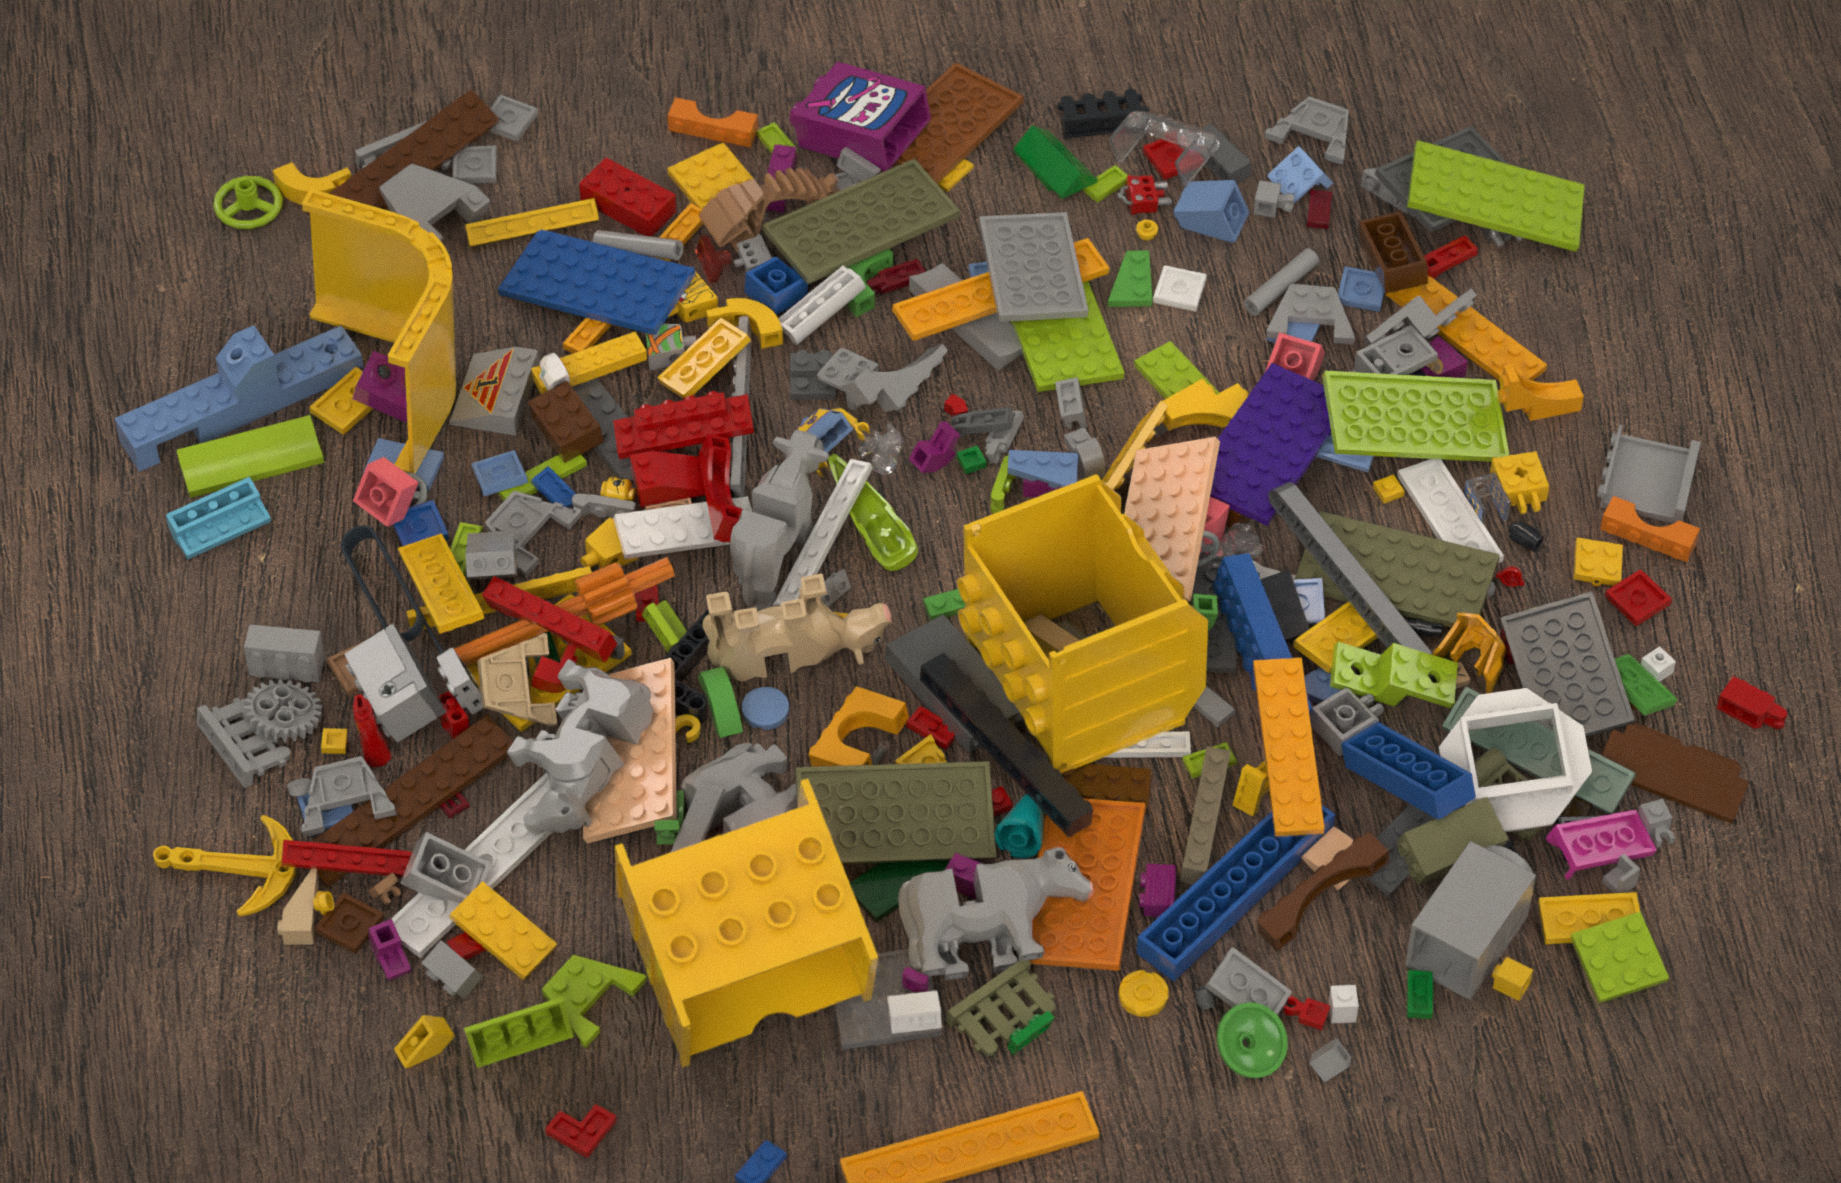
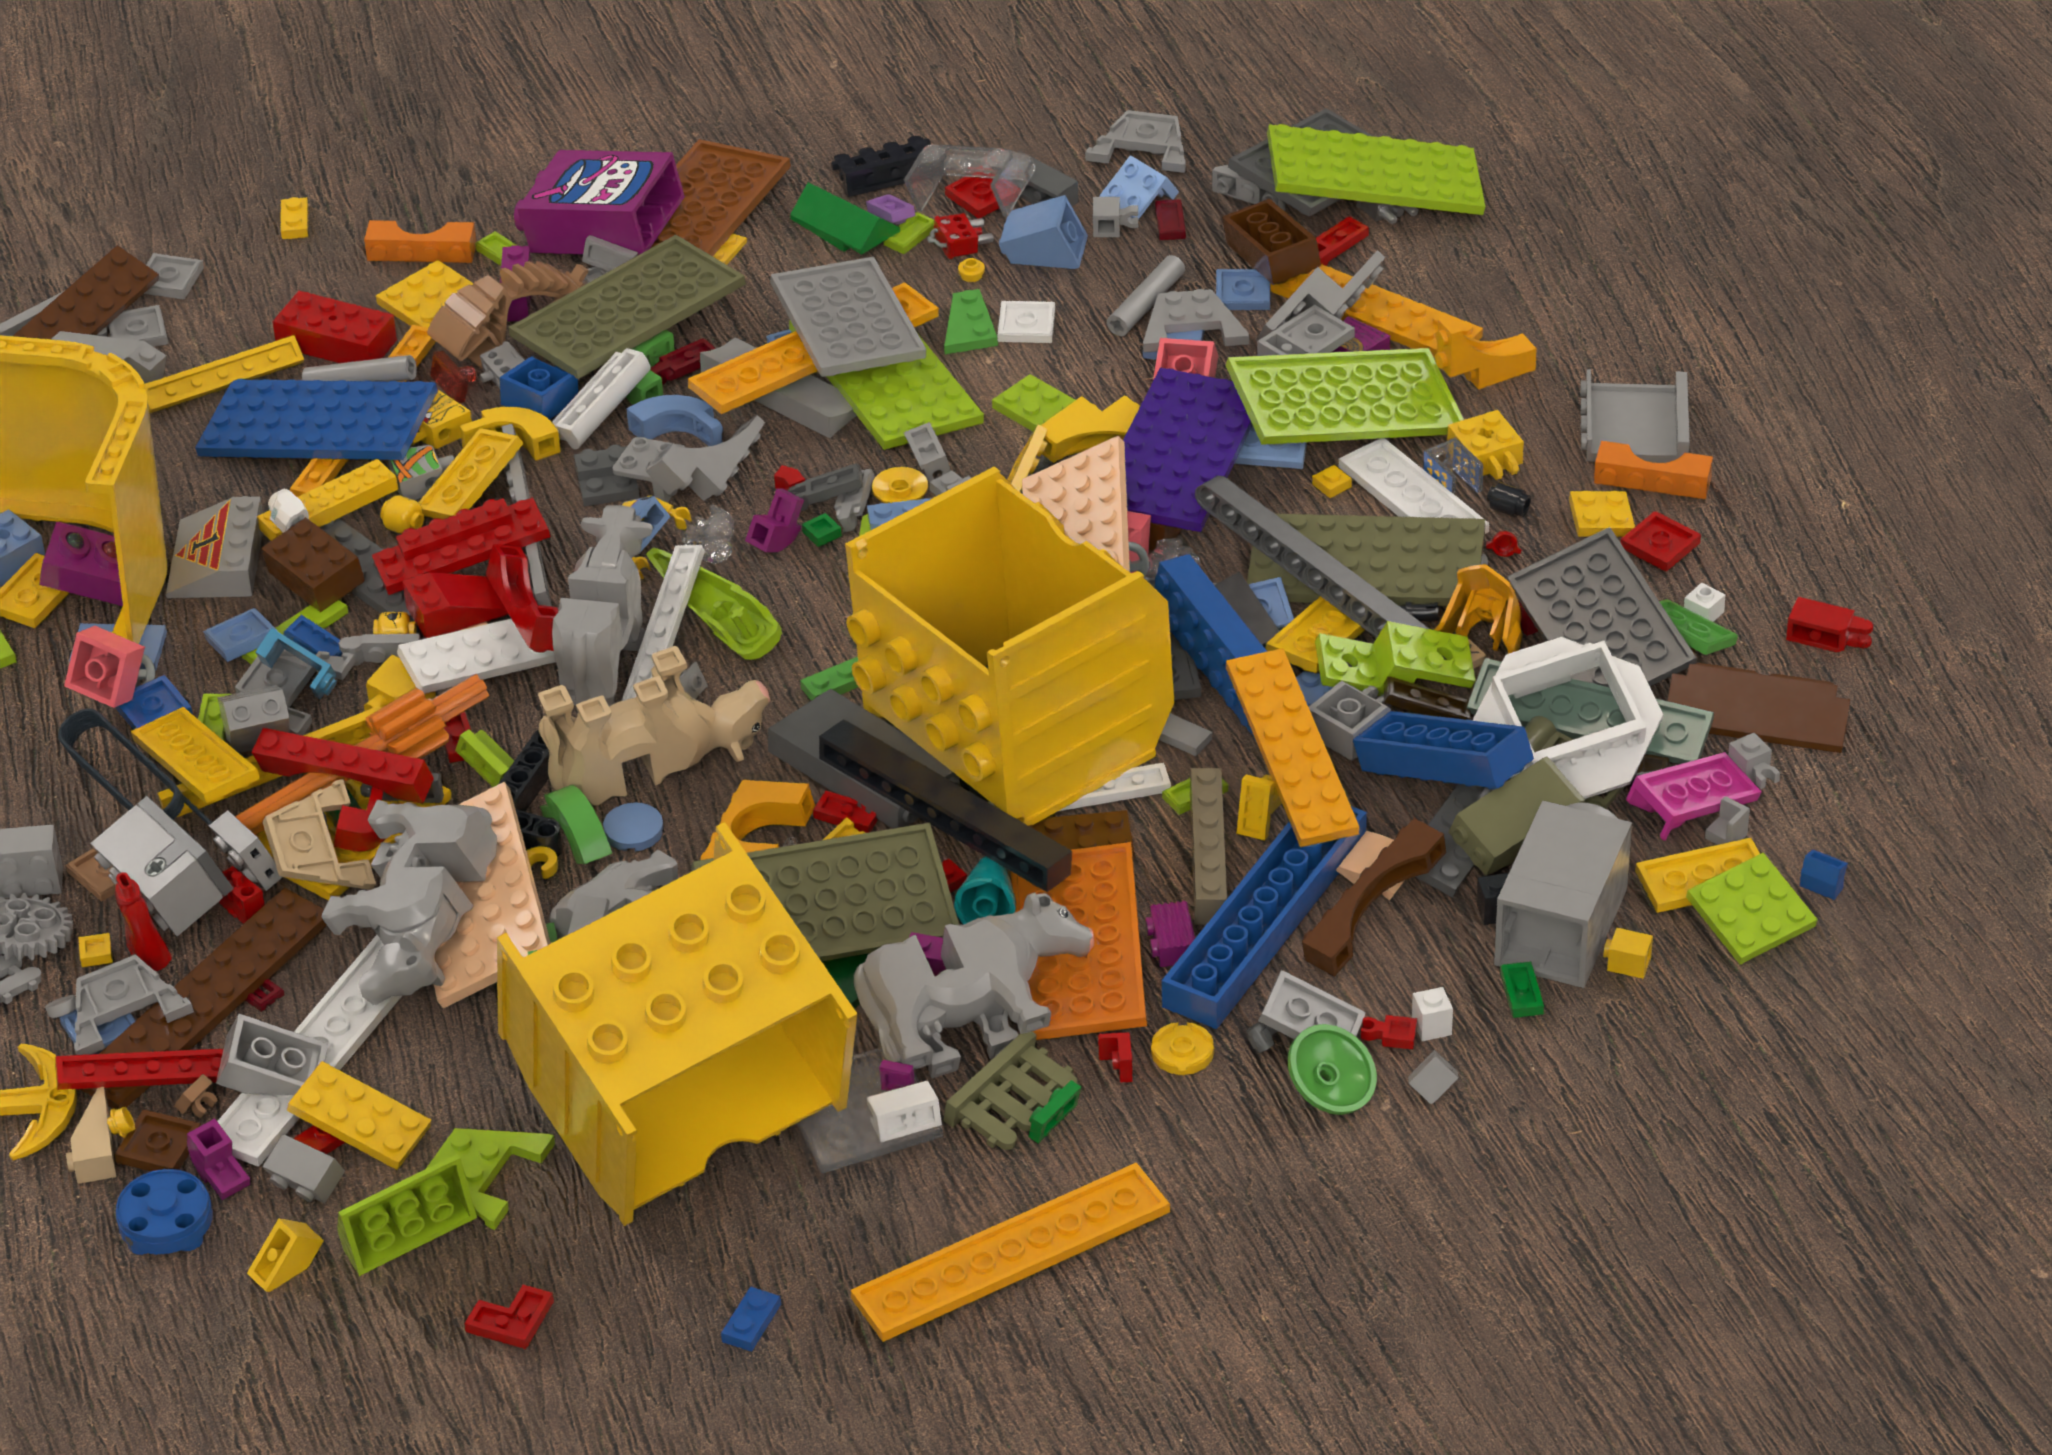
camera: 10 degrees left, 10 degrees down
(341, 986) = (164, 1212): none -> blue piece
(520, 495) = (274, 645): none -> dark azure panel
(618, 79) = (294, 218): none -> yellow plate
(645, 384) = (401, 513): none -> yellow head
(880, 327) = (672, 414): none -> medium blue arch
(1041, 430) = (899, 485): none -> yellow dish
(1093, 986) = (1118, 1049): none -> red bracket
(1094, 159) = (890, 209): none -> medium lavender plate
(1410, 715) = (1424, 700): none -> dark brown tile
(1415, 903) = (1487, 894): none -> black brick
(1685, 937) = (1823, 874): none -> blue piece

